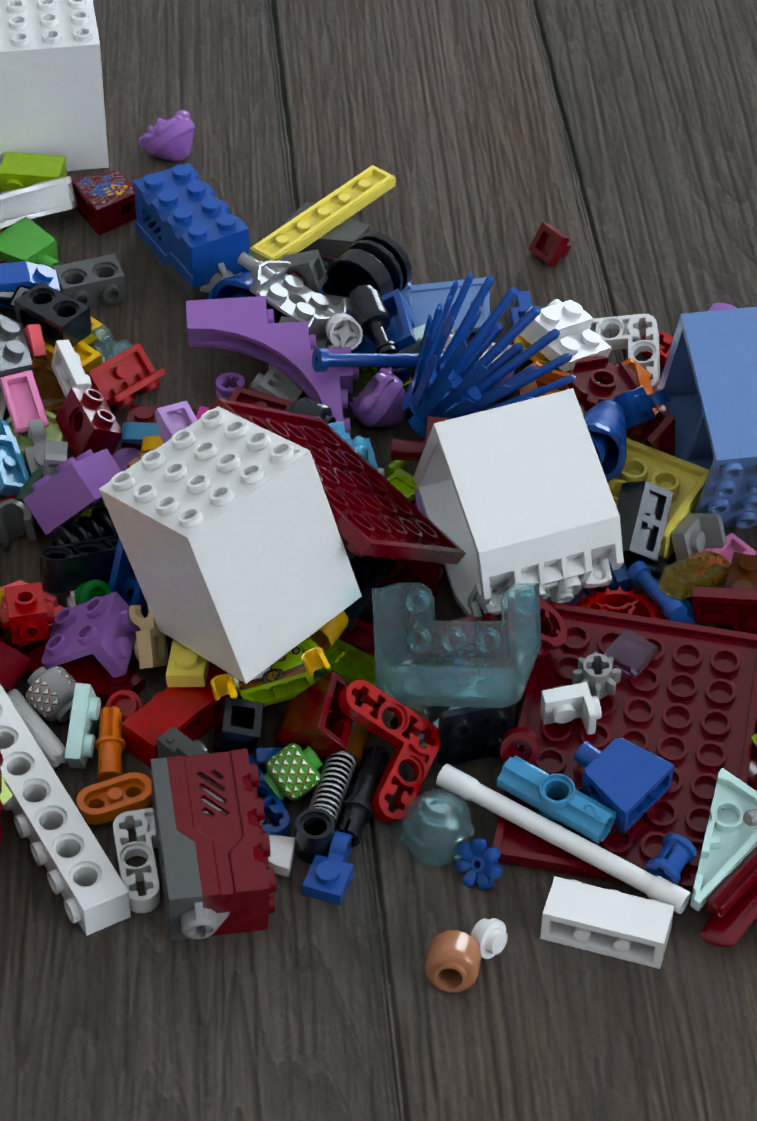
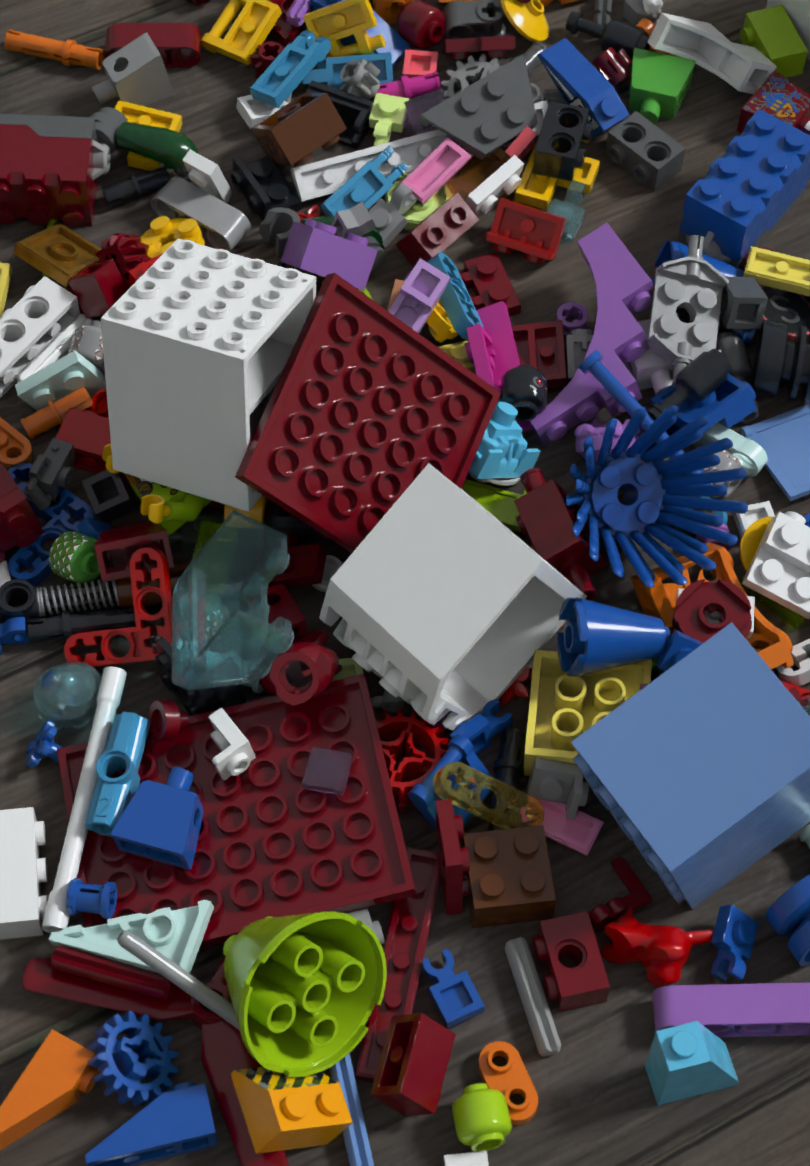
camera: 65 degrees right, 15 degrees up
(349, 334) = (656, 367): white wheel -> none
(598, 673) = (270, 741): light grey gear -> none
(643, 518) = (524, 721): black hinge -> none

